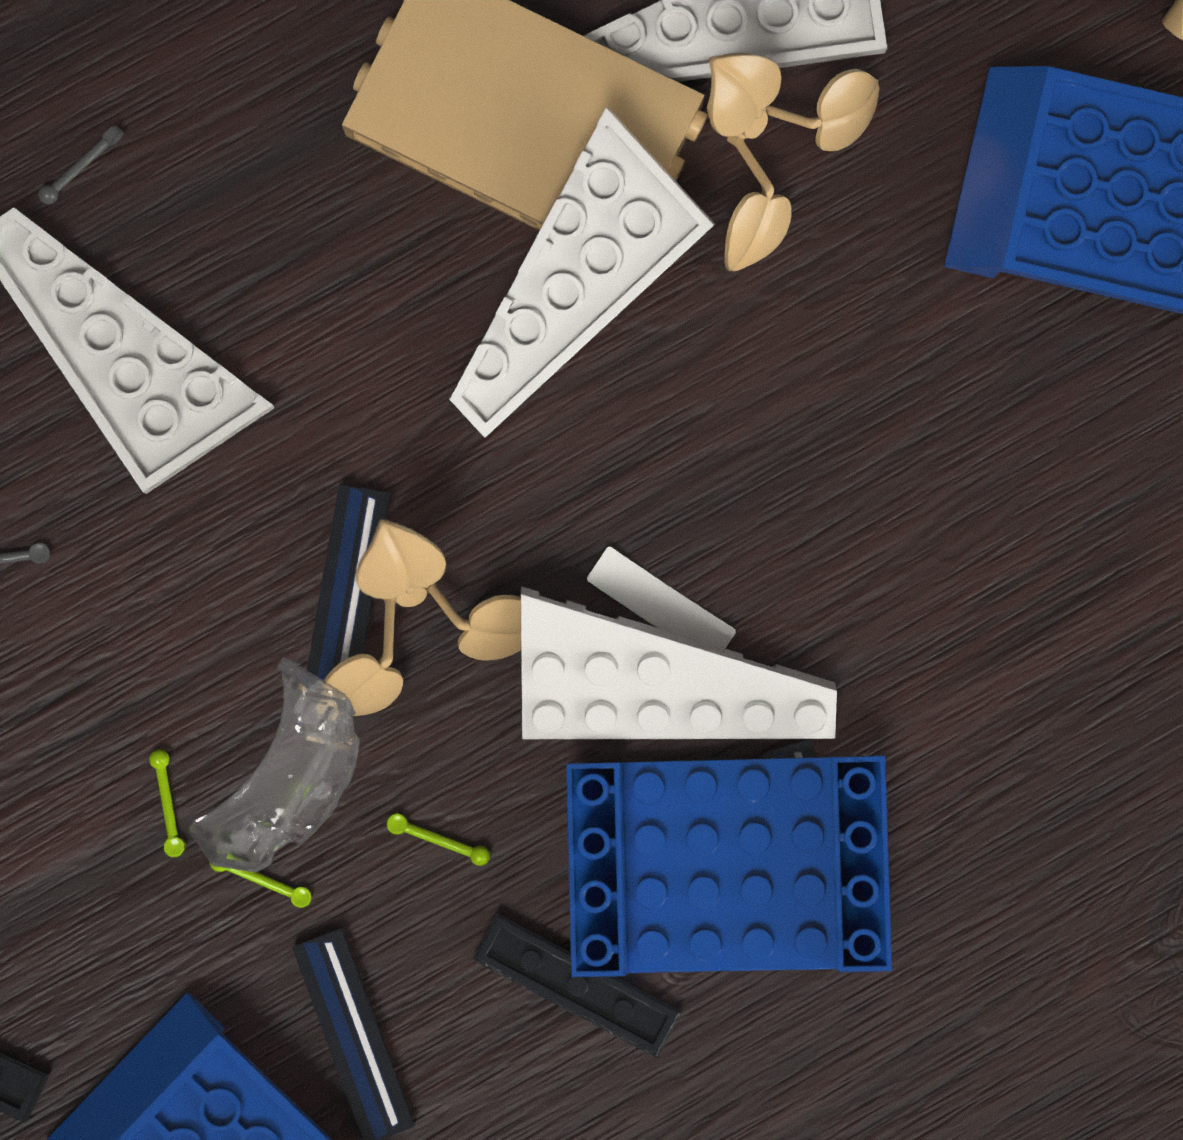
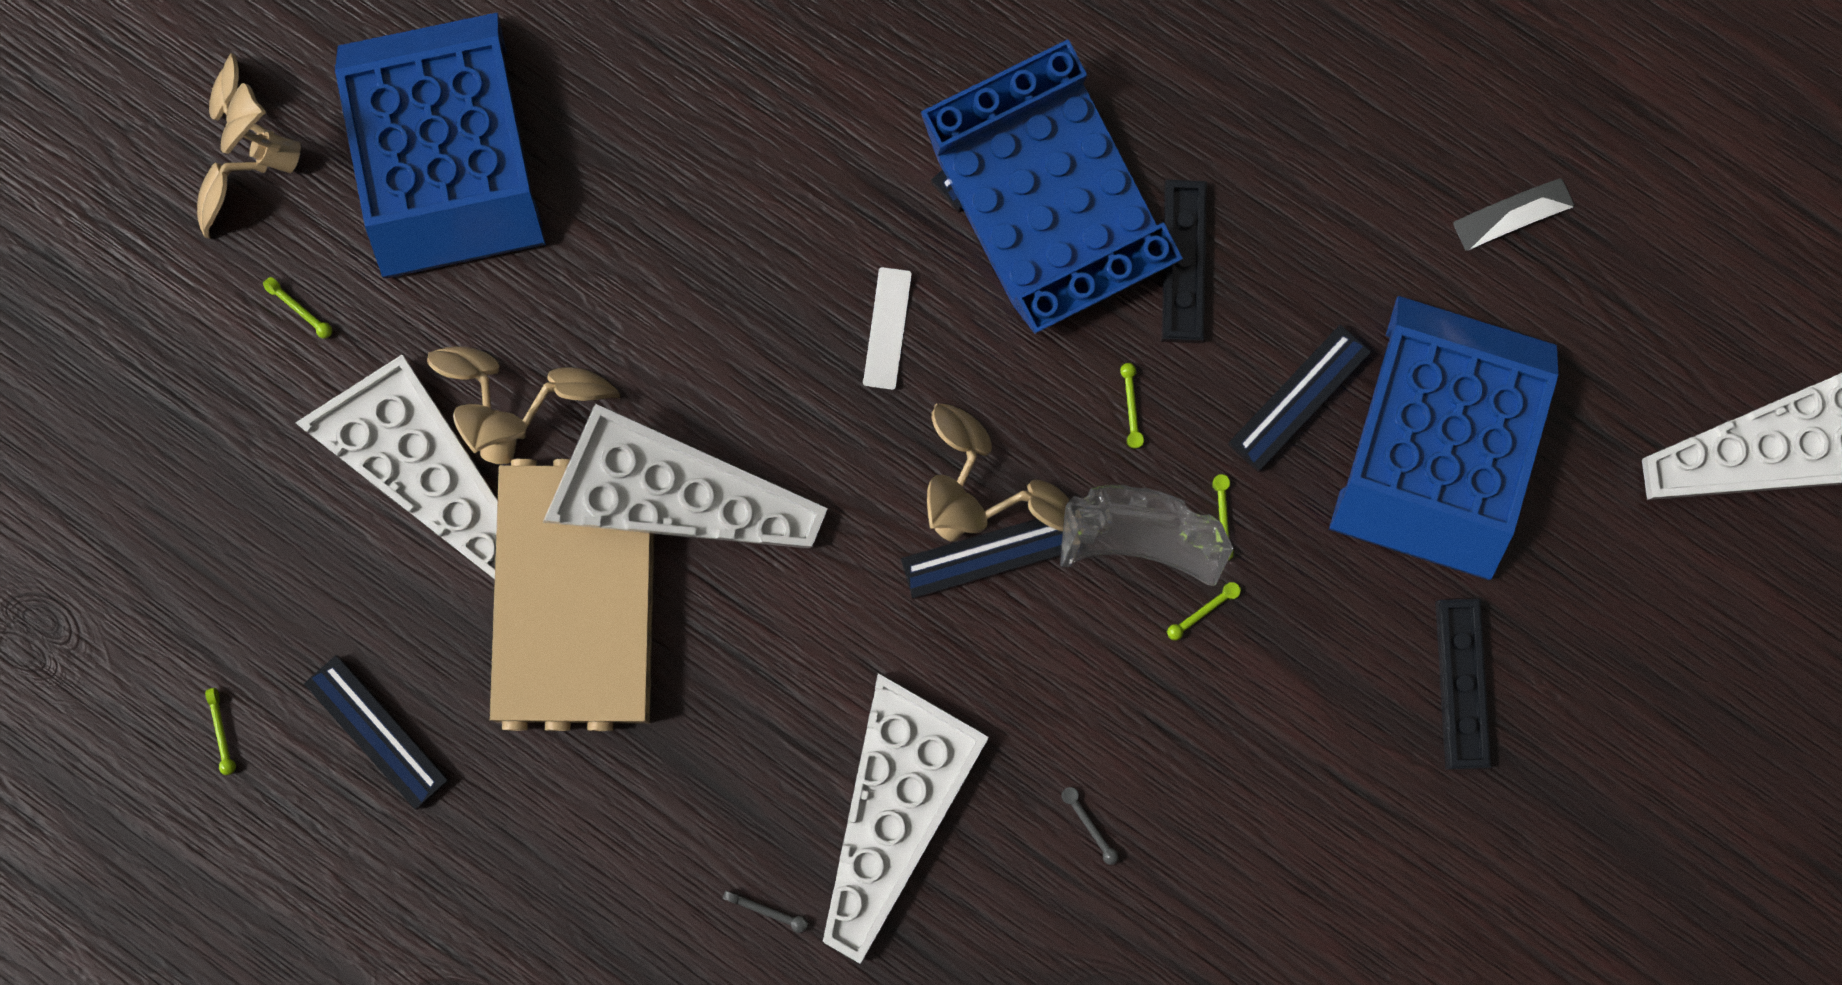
camera: 115 degrees left, 5 degrees down
(642, 682) = (949, 314): white wing -> none

